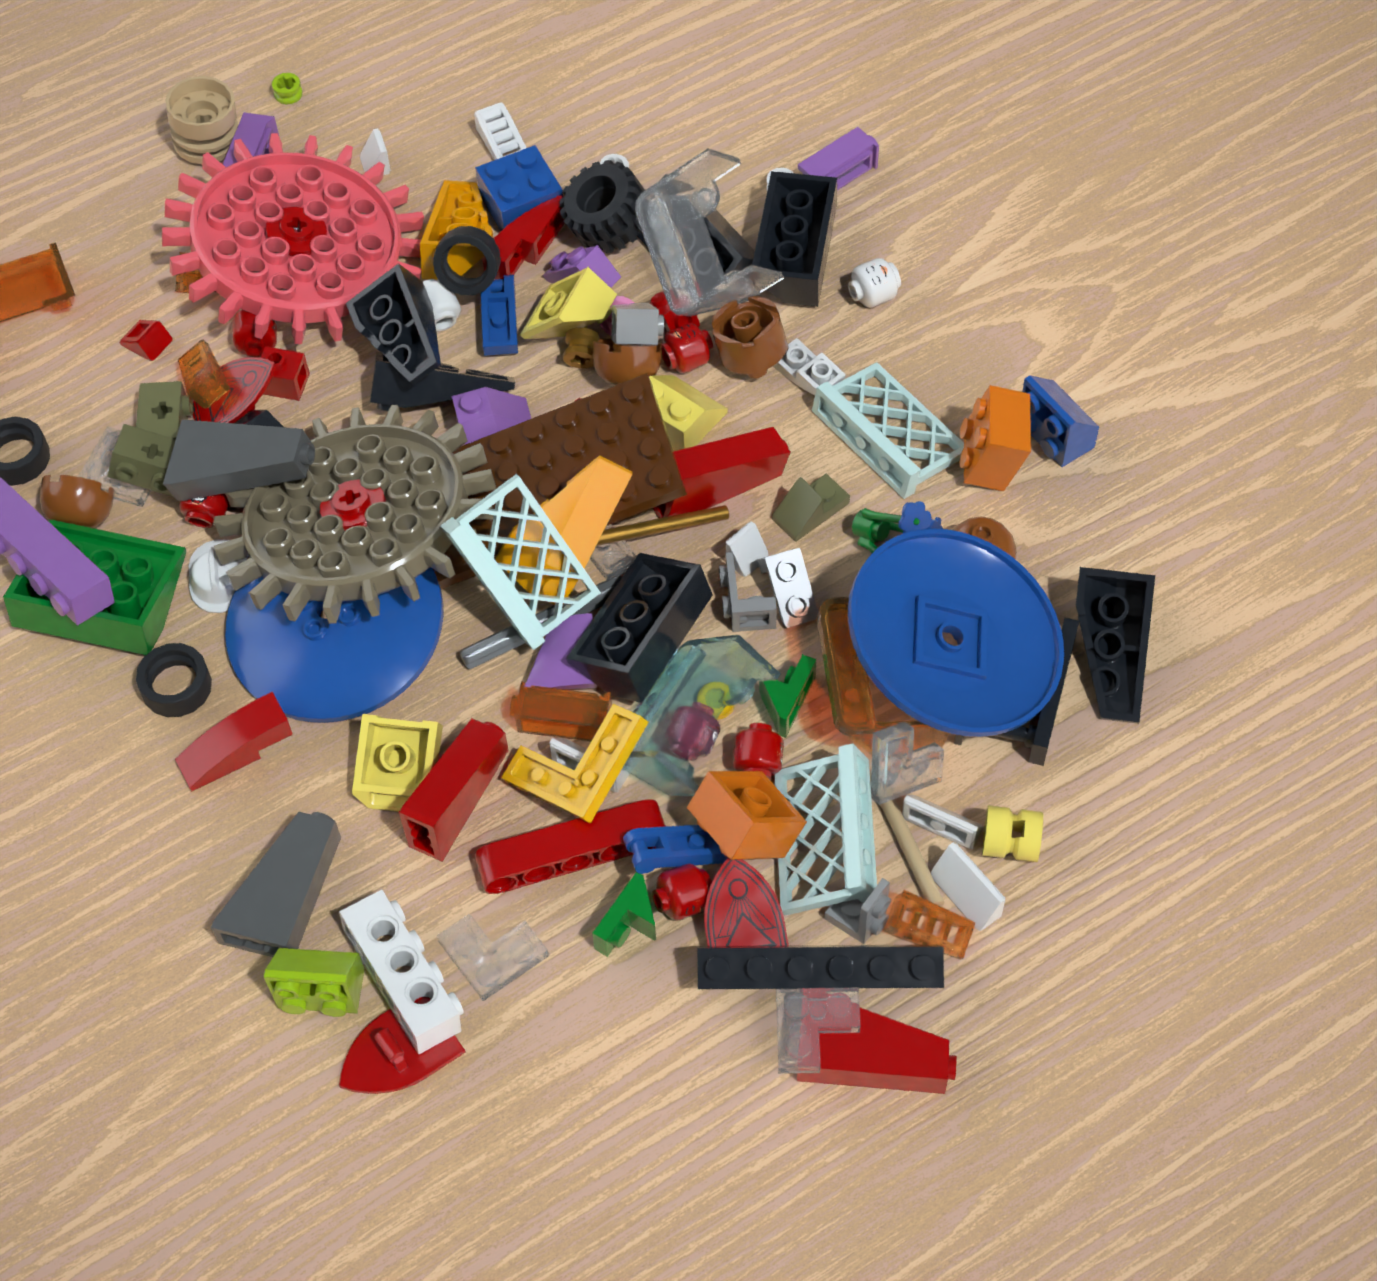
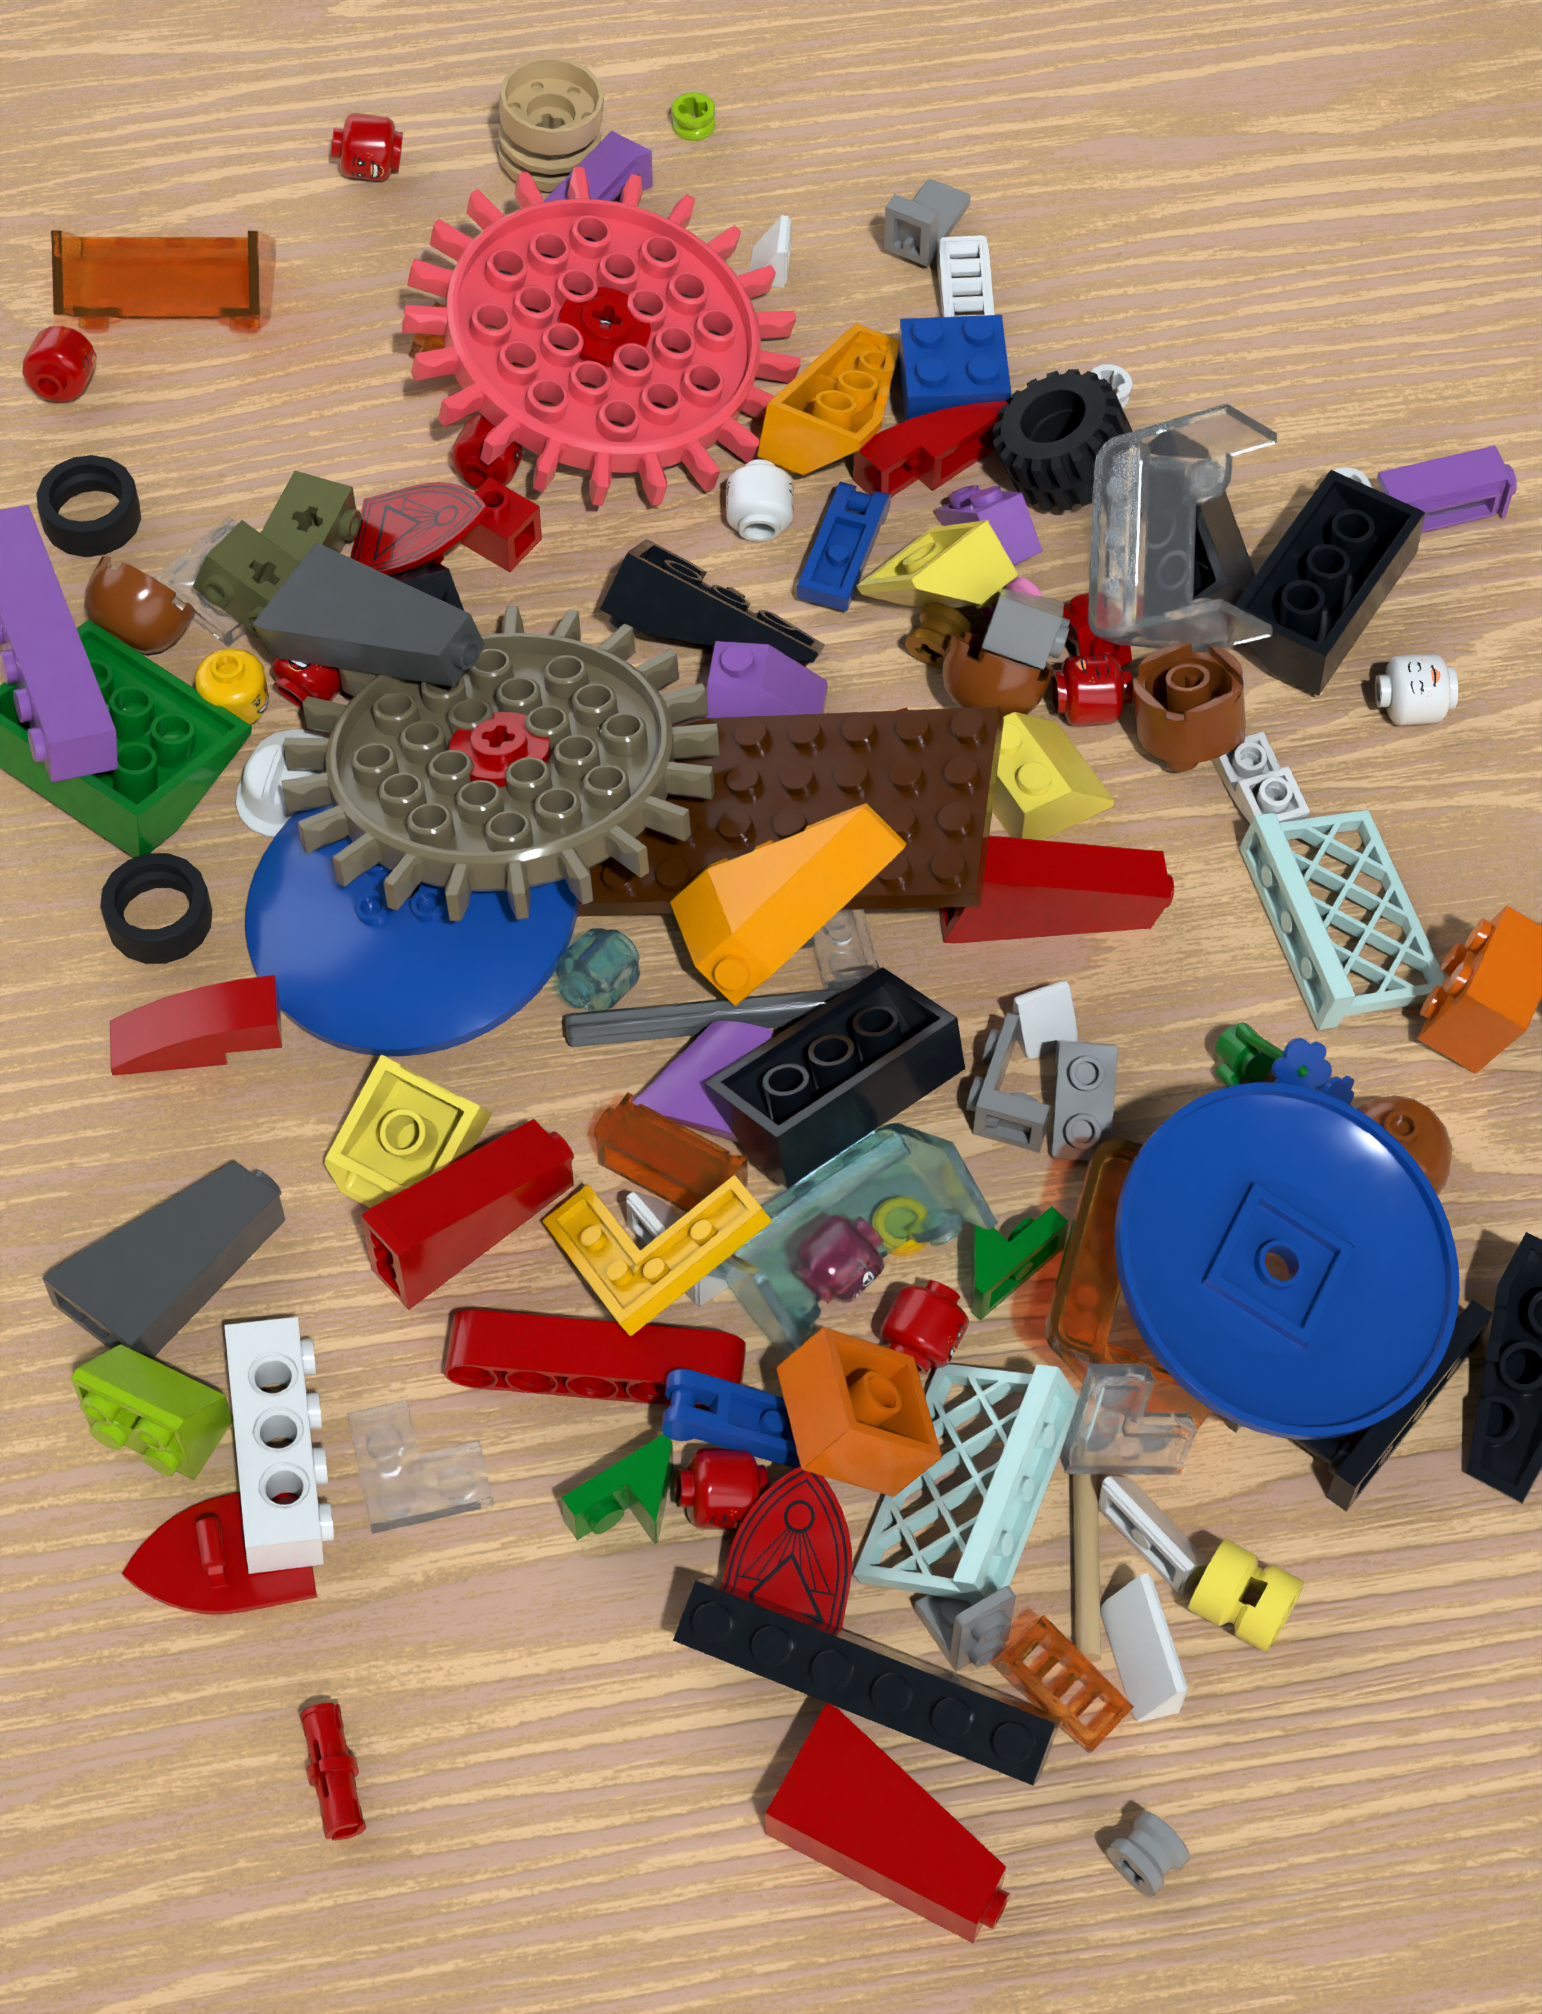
camera: 20 degrees right, 0 degrees up
(90, 172) = (367, 147): none -> red head
(147, 339) = (340, 411): red slope -> none
(160, 524) = (235, 682): none -> yellow head
(202, 375) = (388, 488): clear orange slope -> none
(399, 322) = (686, 507): black wedge -> none
(455, 282) = (793, 470): black tyre -> none
(458, 106) = (917, 225): none -> light grey bracket
(467, 616) = (598, 969): none -> clear light blue head
(492, 575) = (645, 932): light aqua fence -> none
(525, 1149) = (332, 1771): none -> red pin
(664, 524) = (936, 938): pearl gold bar -> none
(804, 1015) = (809, 1742): clear plate -> none
(809, 506) = (1170, 989): olive slope -> none
(1023, 1001) = (1148, 1853): none -> light grey wheel

